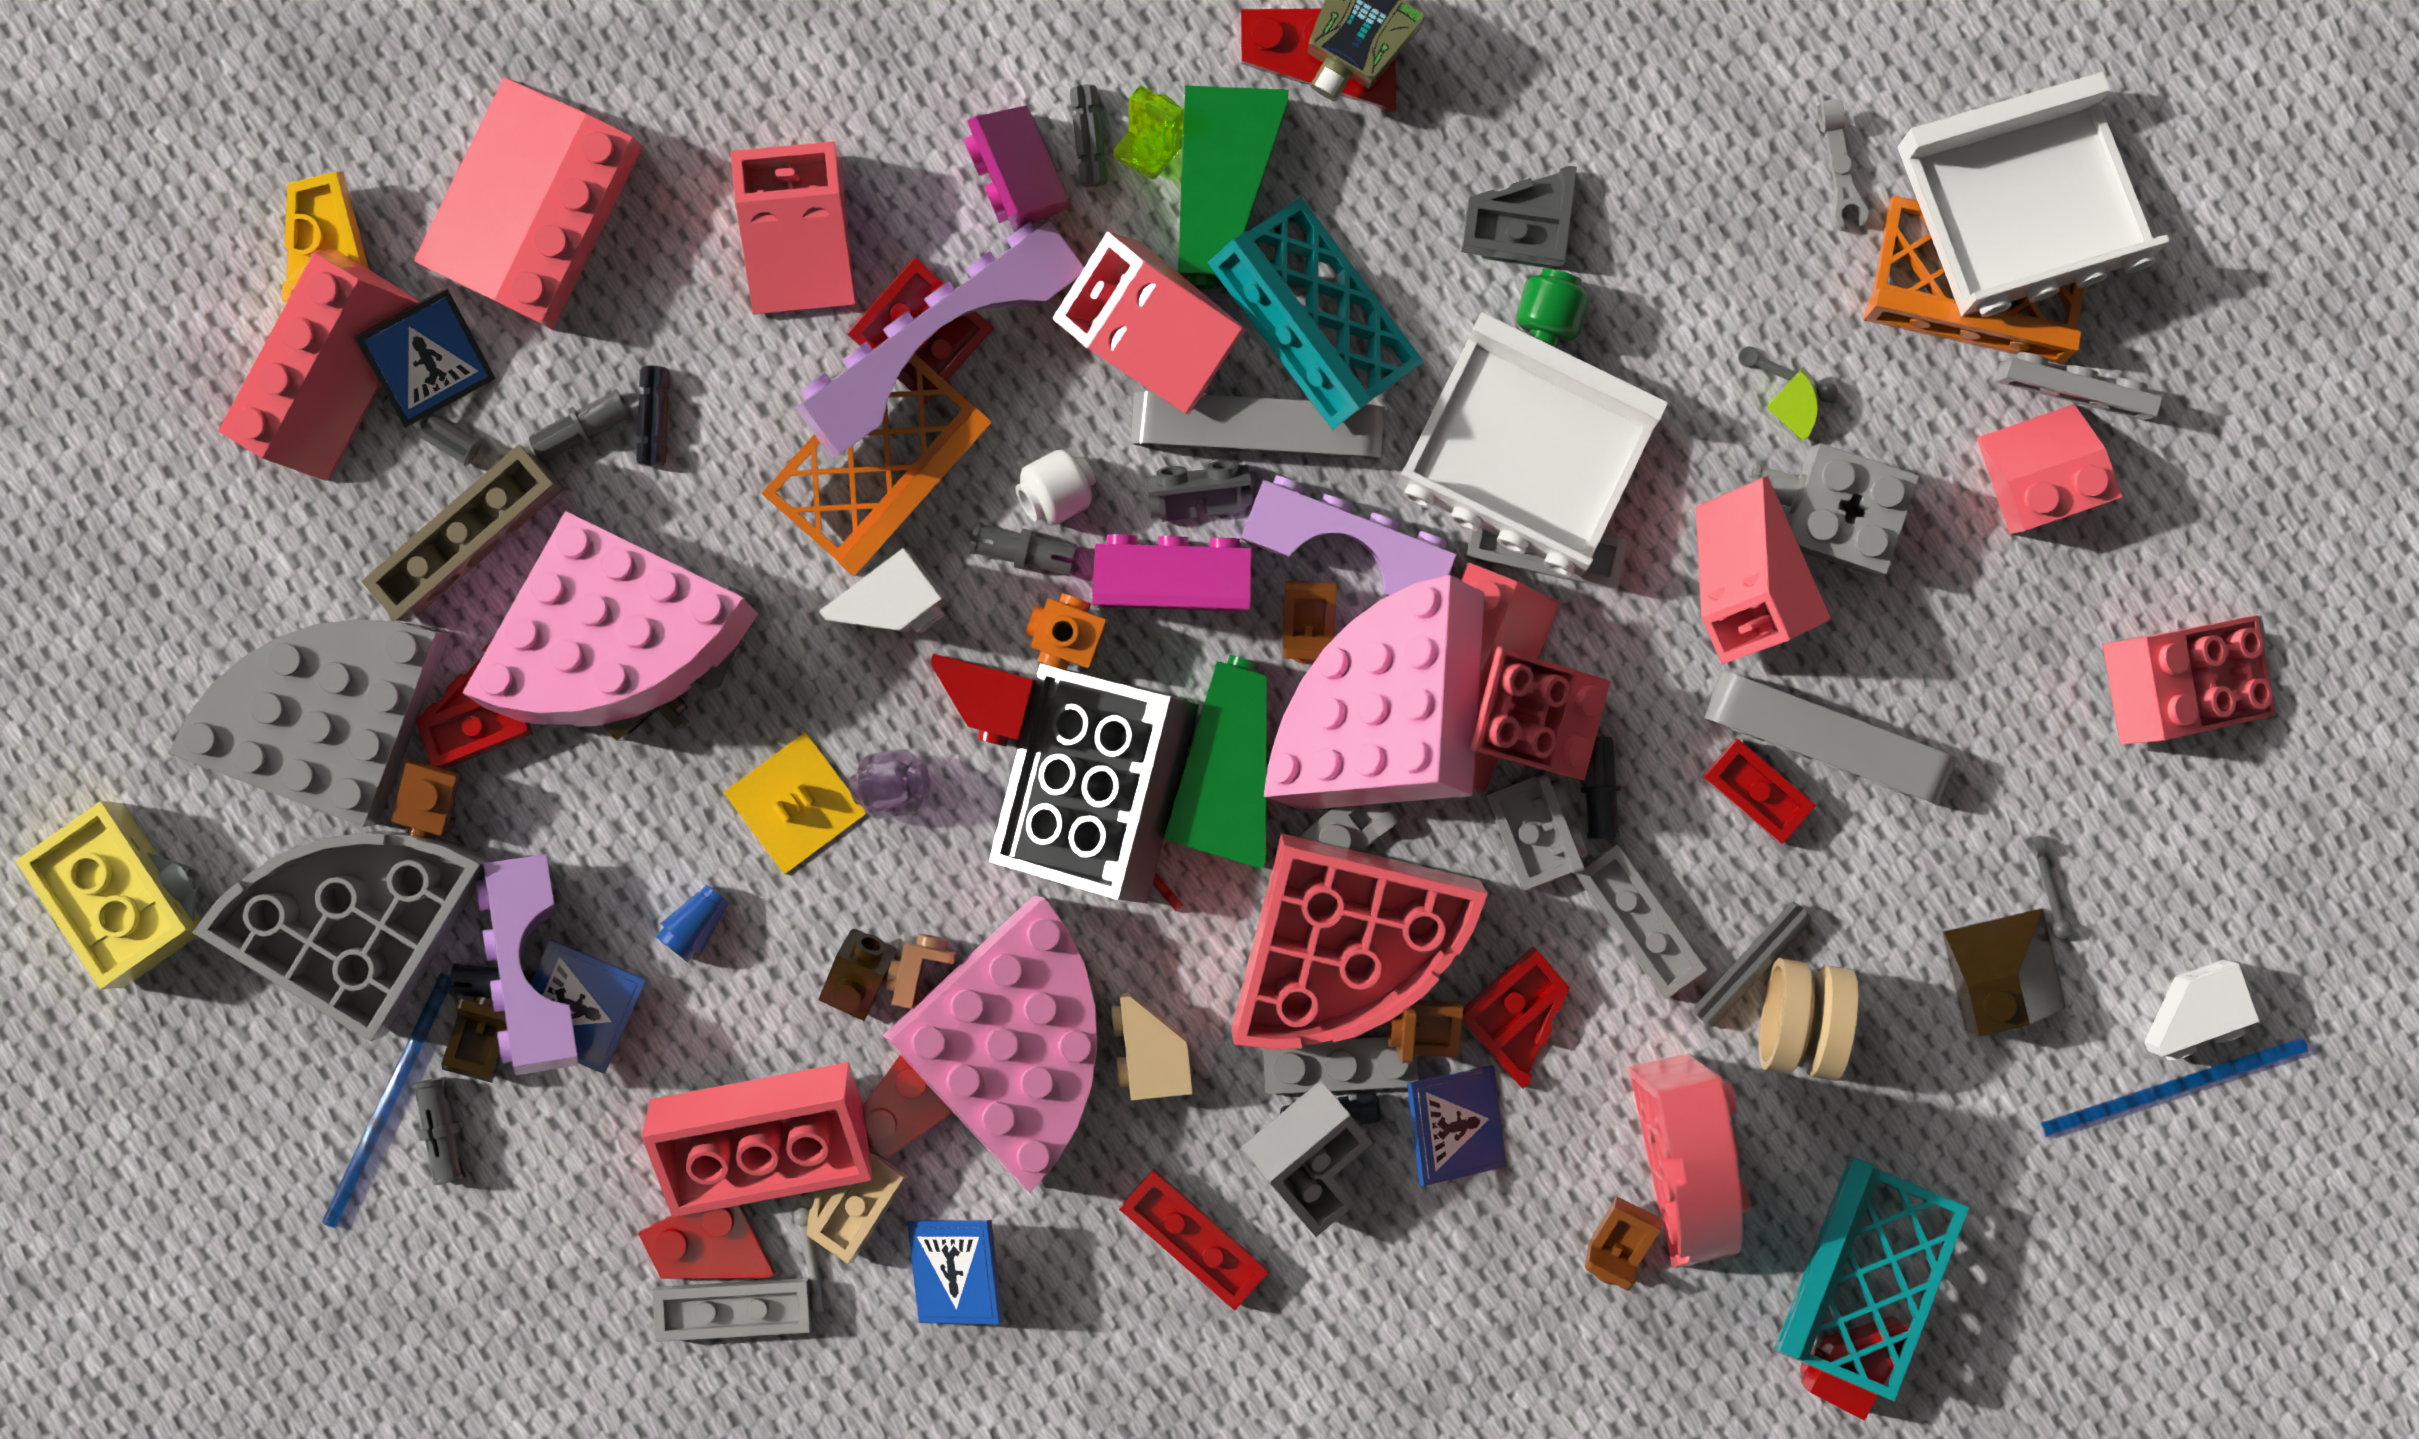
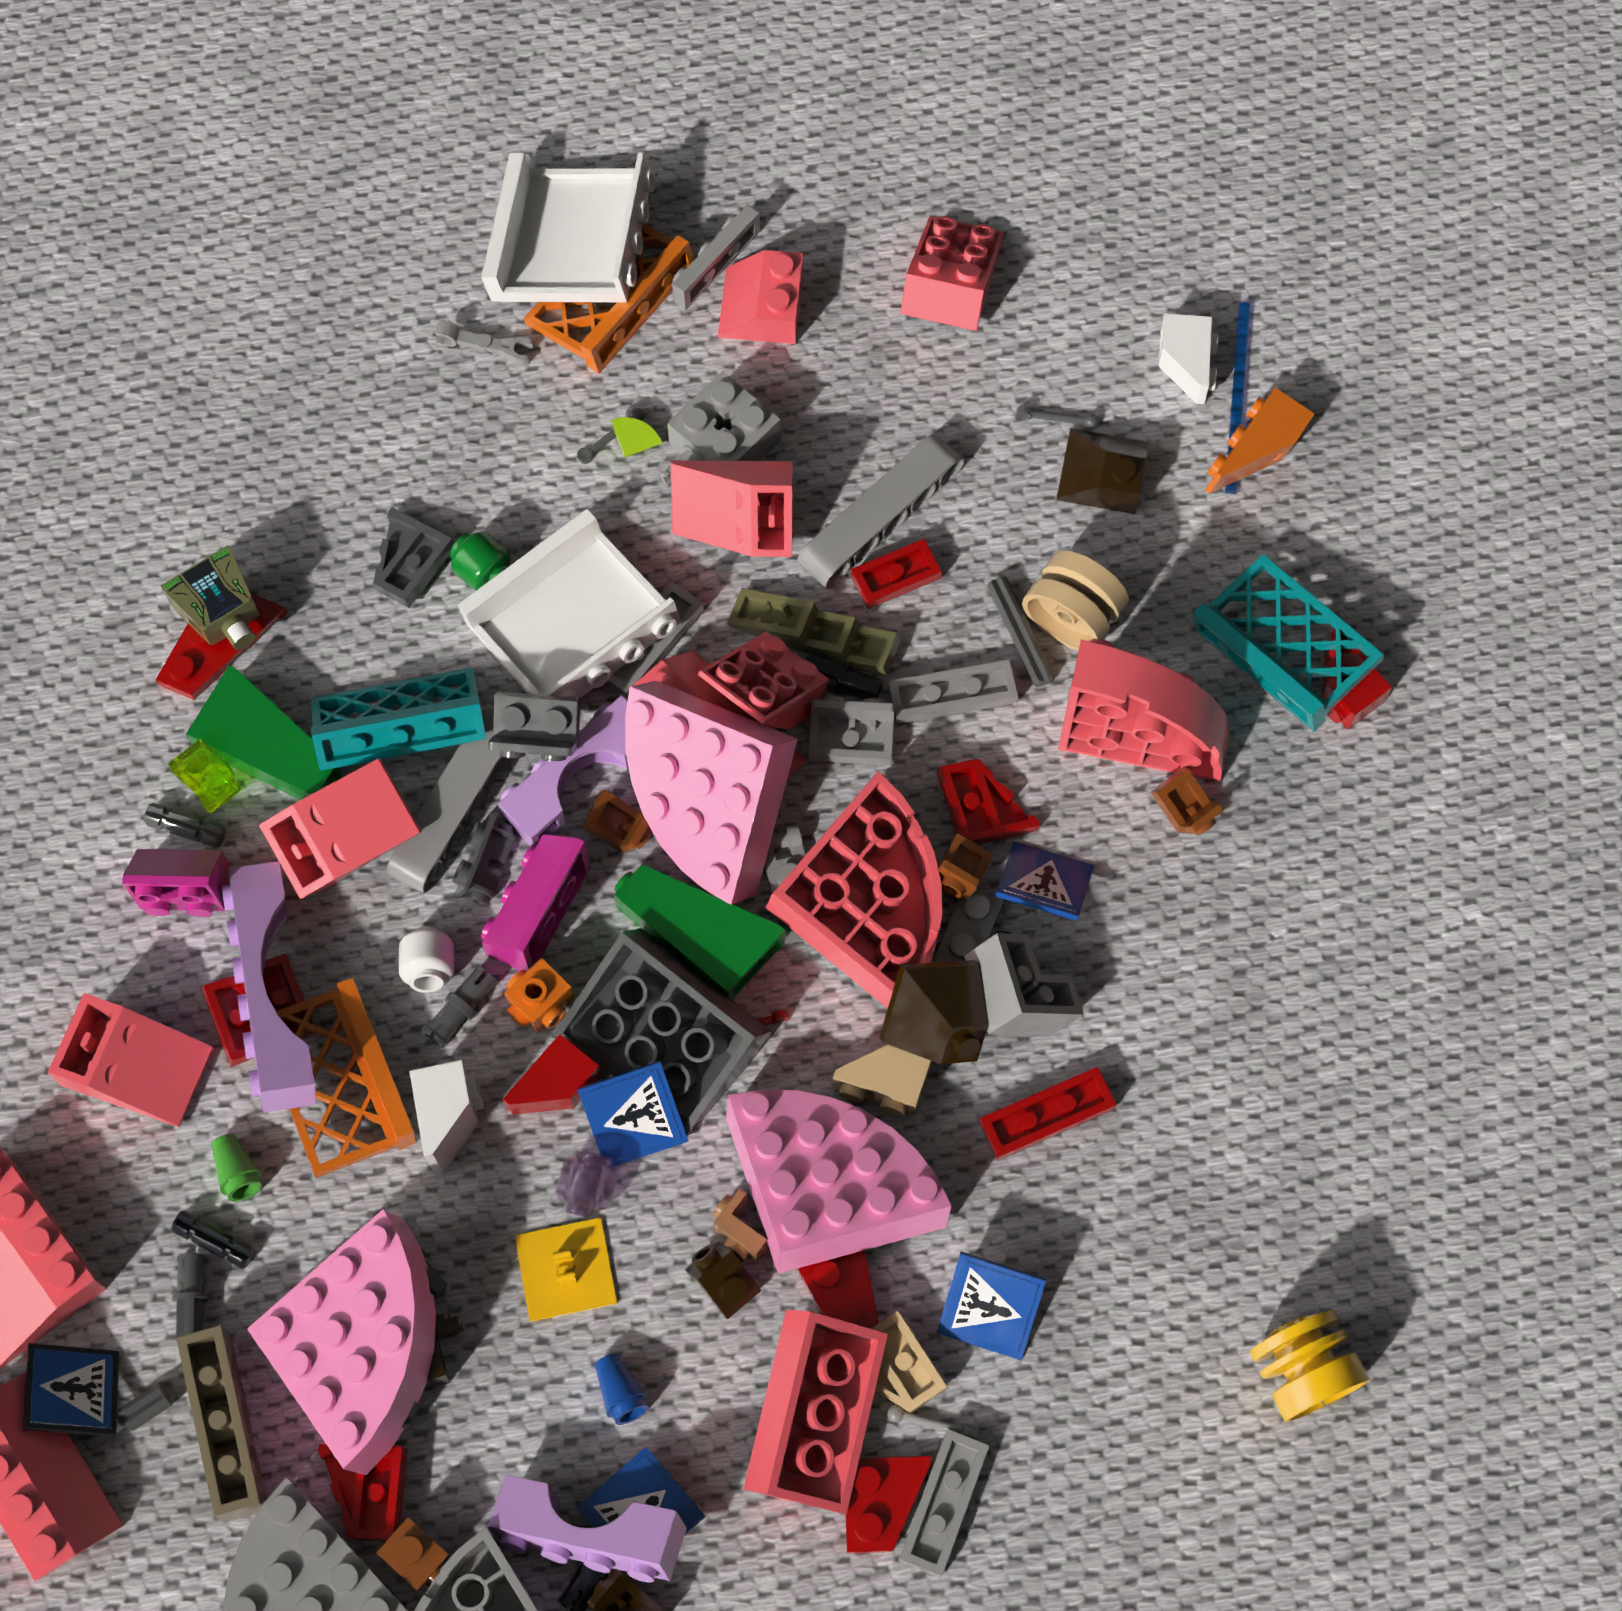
camera: 65 degrees left, 20 degrees down
(735, 400) = (235, 1169): none -> bright green cone
(985, 799) = (633, 1114): none -> piece
(1239, 1083) = (937, 1012): none -> dark brown slope
(1366, 481) = (535, 725): none -> dark grey bracket
(1644, 729) = (815, 631): none -> olive slope
(2138, 1150) = (1265, 441): none -> orange slope

